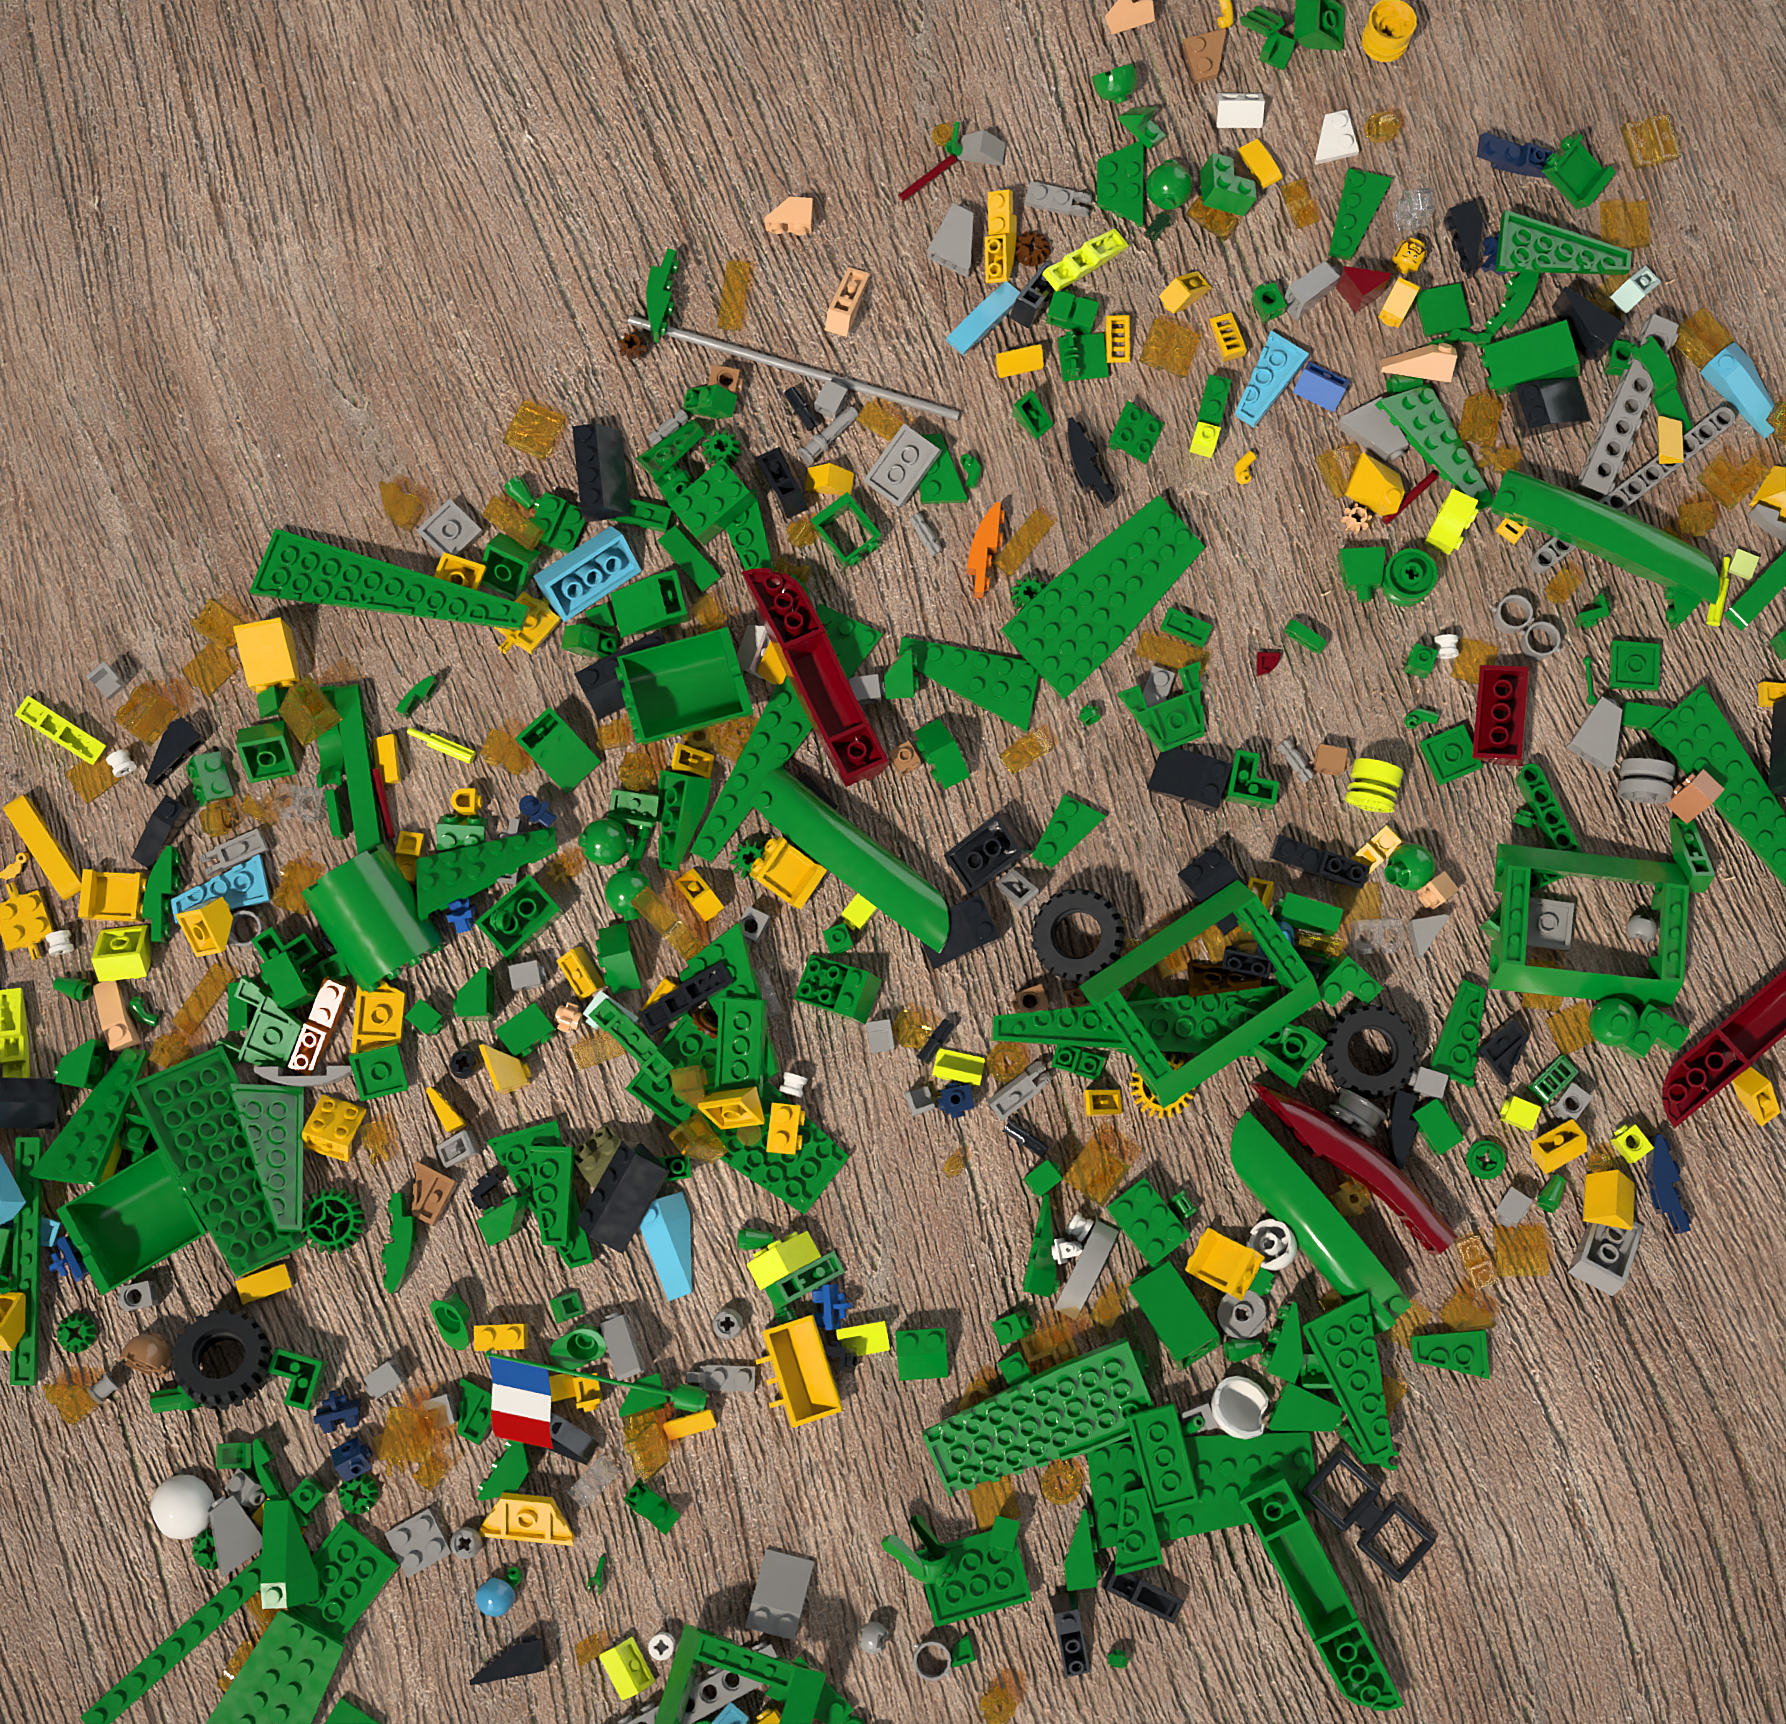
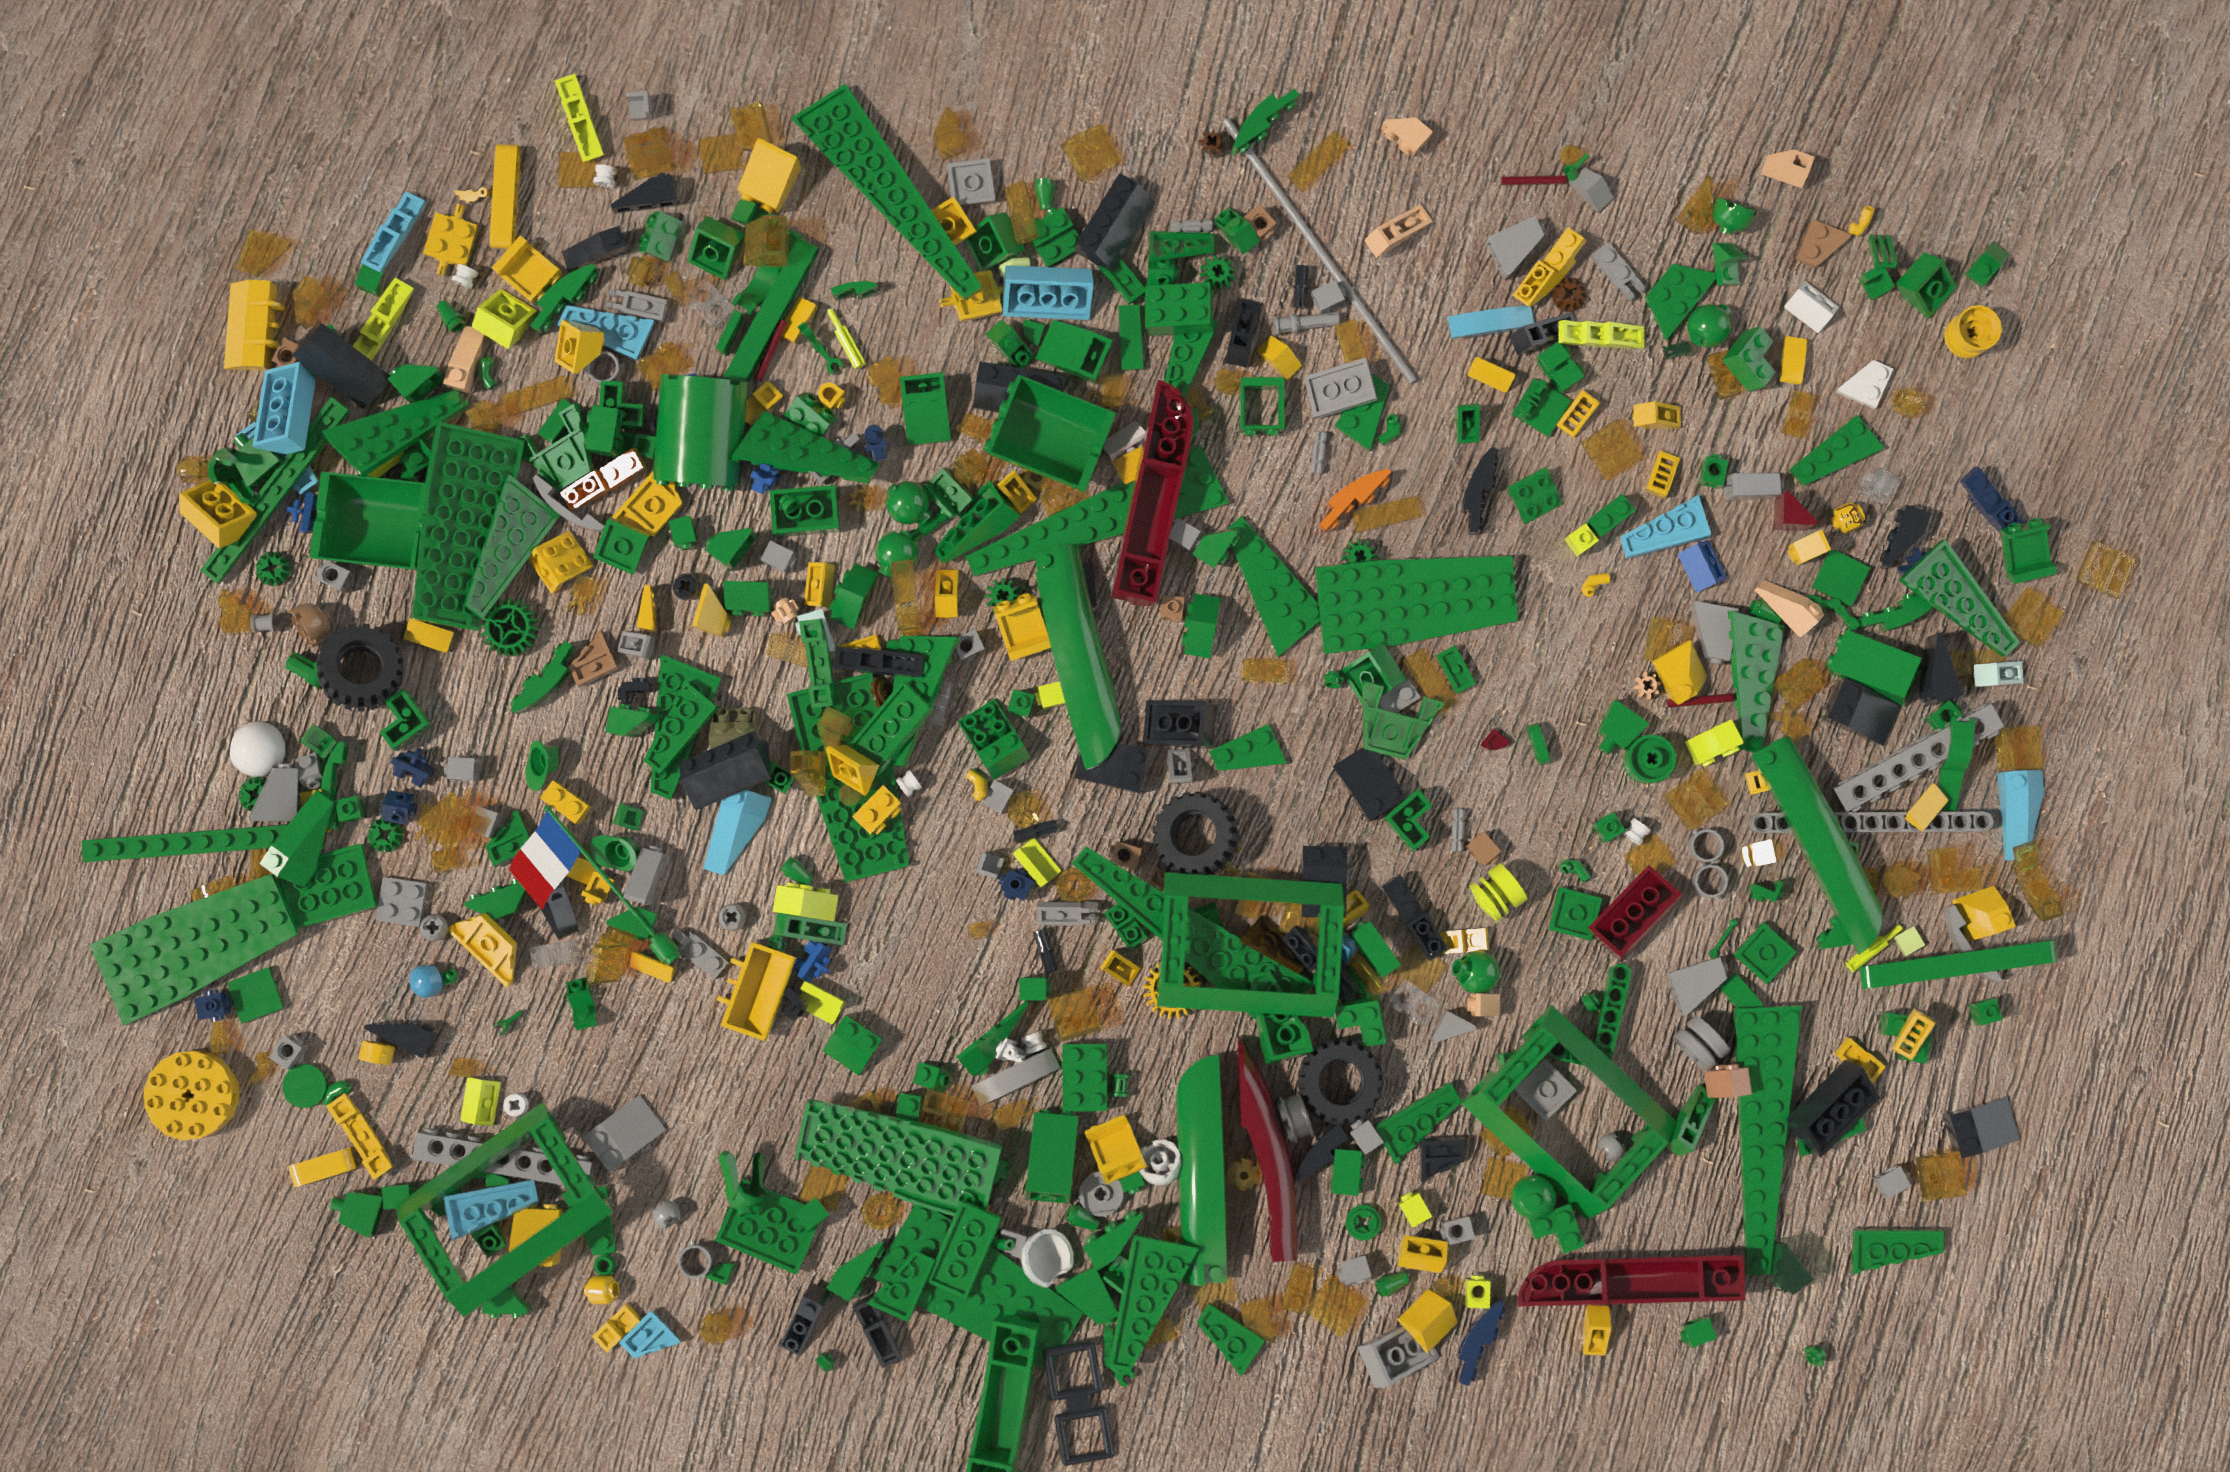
camera: 35 degrees right, 5 degrees up
(422, 769) = (819, 348): none -> green piece
(499, 1698) = (376, 1052): none -> yellow piece
(541, 566) = (1014, 262): none -> yellowish green arm
(856, 1037) = (980, 783): none -> yellow arm
(1084, 98) = (1699, 209): none -> clear yellow slope
(1115, 676) = (1375, 667): none -> green slope
(1472, 583) = (1695, 800): none -> clear yellow slope
(1537, 1090) = (1440, 1198): green slope -> none

